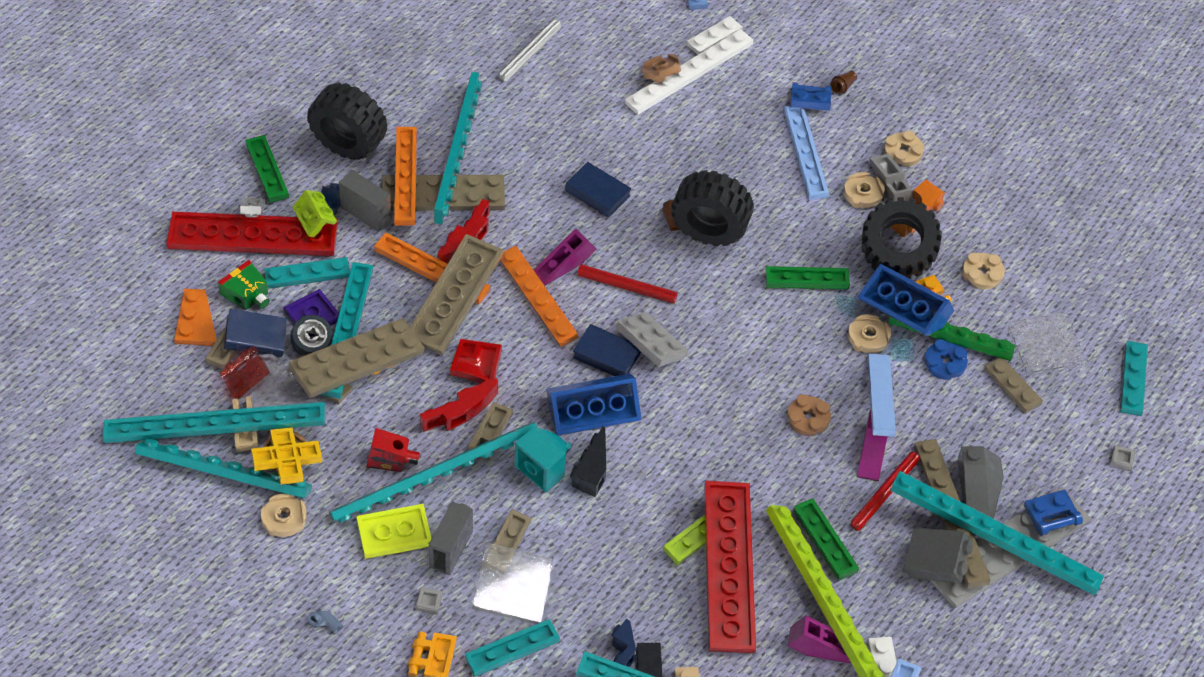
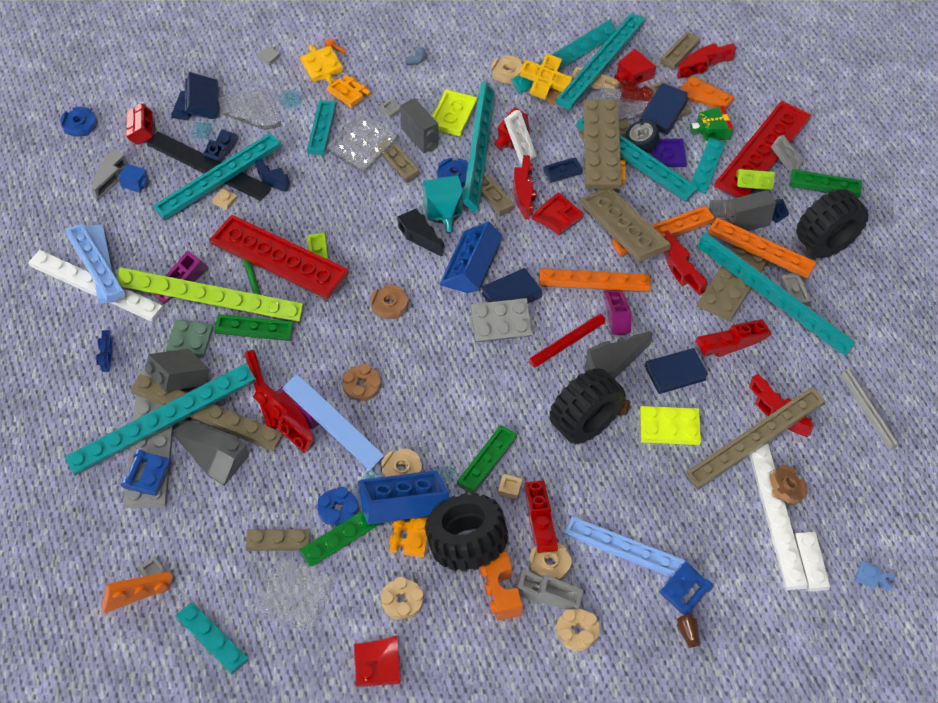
camera: 125 degrees right, 0 degrees up
(137, 366) = (680, 50): none -> dark tan plate
(147, 340) = (701, 59): none -> red slope
(201, 392) = (635, 68): none -> red torso
(365, 233) = (718, 207): none -> flat silver plate
(406, 428) = (519, 135): none -> white plate
(408, 387) = (562, 169): none -> dark blue plate
(433, 141) = (793, 285): none -> light grey plate
(485, 493) = (450, 165): none -> blue plate
(528, 163) = (735, 339): none -> red slope
(582, 104) = (769, 402): none -> red slope
(629, 234) = (617, 355): none -> dark grey wedge
(635, 99) = (754, 438): none -> dark tan plate
(657, 171) = (670, 425): none -> neon yellow plate
(700, 455) = (393, 310): none -> medium nougat plate
(771, 579) = (251, 276): none -> green bar
(819, 248) = (510, 486): none -> tan plate
(834, 212) = (540, 516): none -> red slope
(882, 590) = (190, 336): none -> sand green plate
(905, 439) = (290, 418): none -> red slope
(957, 651) = (105, 347): none -> clear blue plate
(1049, 257) = (377, 662): none -> red plate
(1163, 448) = (132, 590): none -> orange wing

